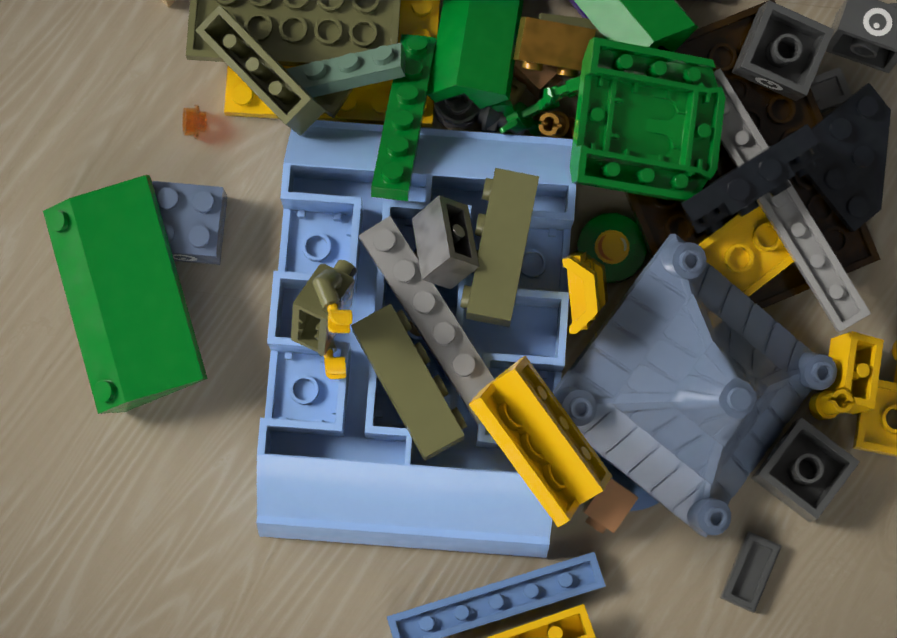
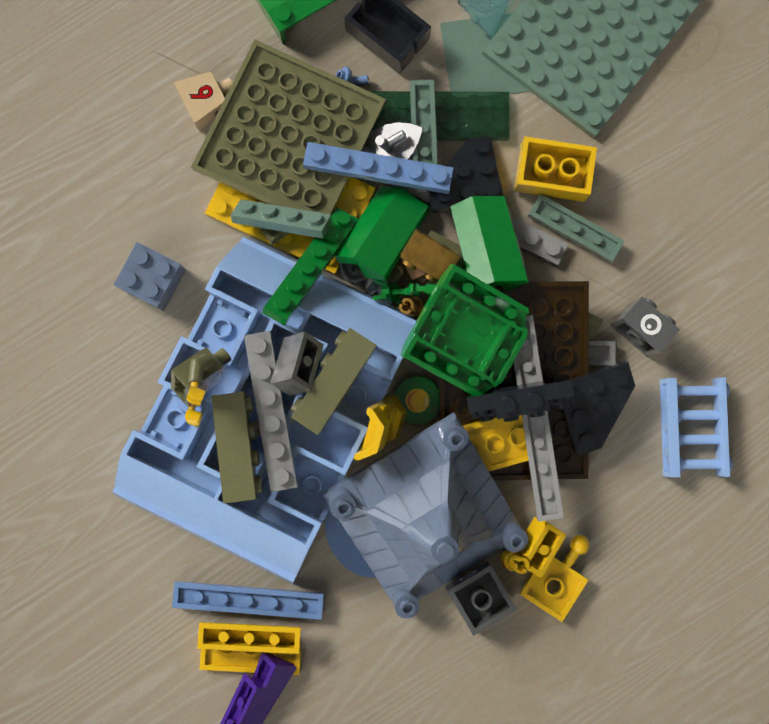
camera: 20 degrees right, 5 degrees up
(124, 295) = (88, 309): green slope -> none
(194, 121) = (182, 212): clear orange plate -> none
(260, 70) = (229, 197): olive brick -> none
(540, 440) = (305, 521): yellow slope -> none
(609, 507) = (345, 568): medium nougat brick -> none
(750, 572) = (419, 646): dark grey tile -> none
(783, 51) = (579, 320): dark grey brick -> none

